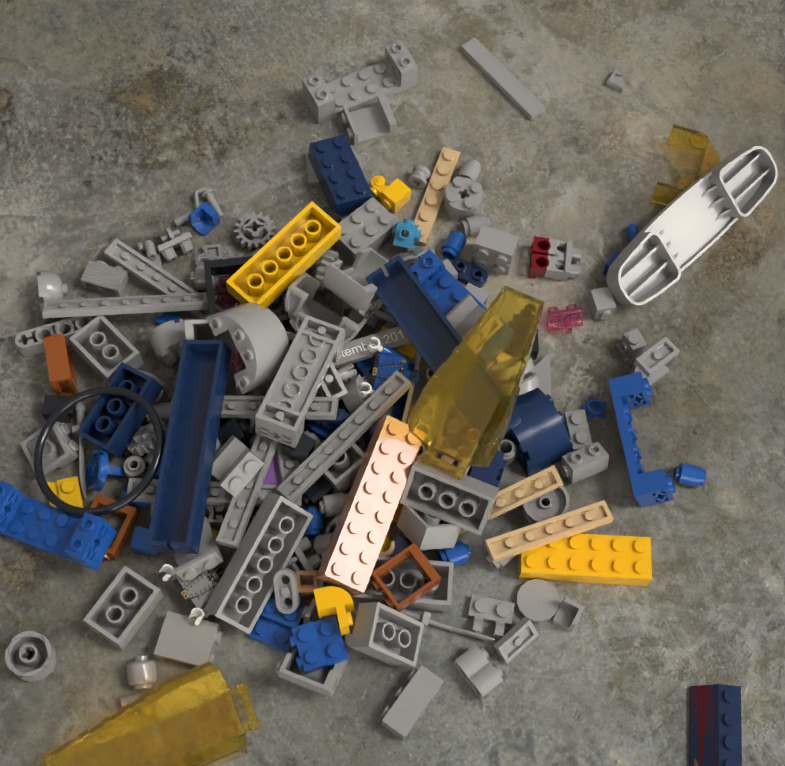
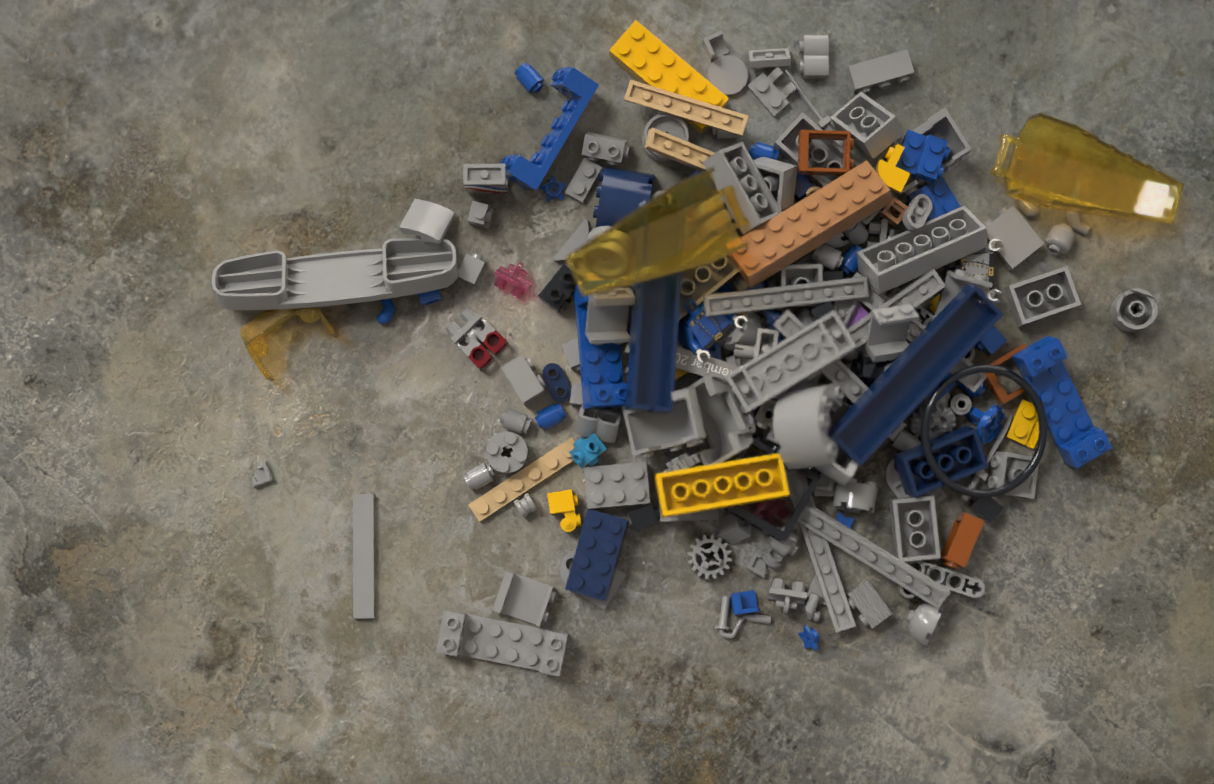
camera: 135 degrees left, 20 degrees up
(133, 228) = (810, 637): none -> blue plate
(665, 310) = (427, 220): none -> light grey slope

